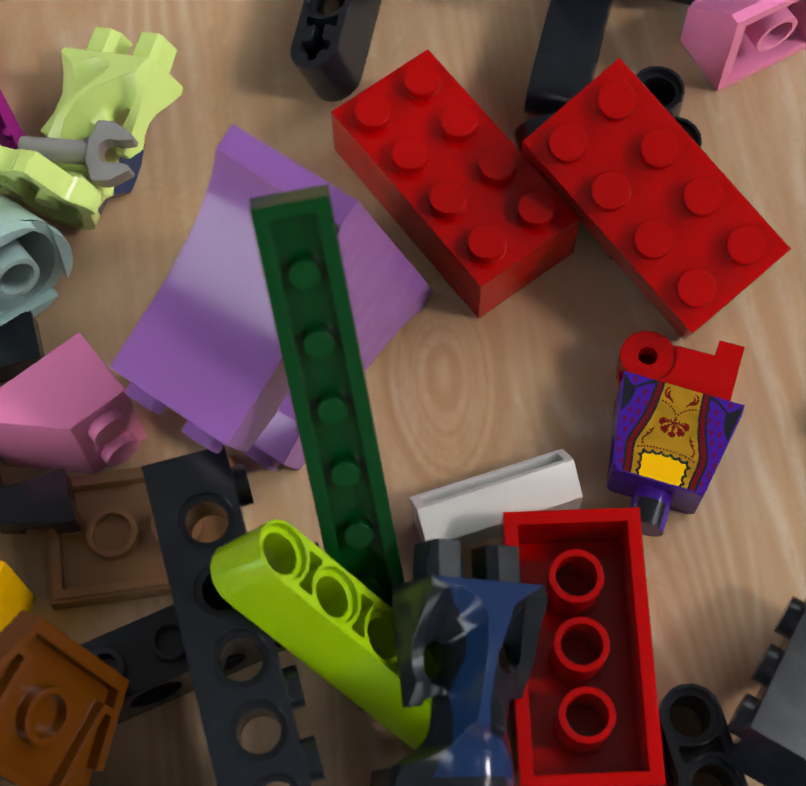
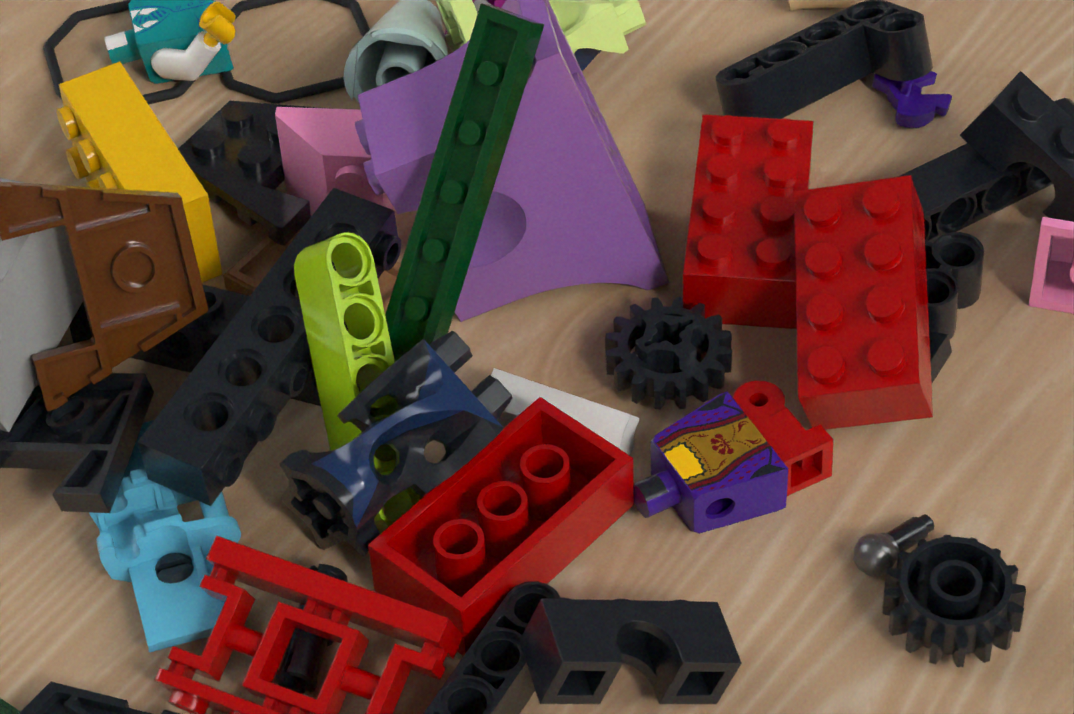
camera: 45 degrees right, 20 degrees down
(547, 370) = (668, 353): none -> black gear

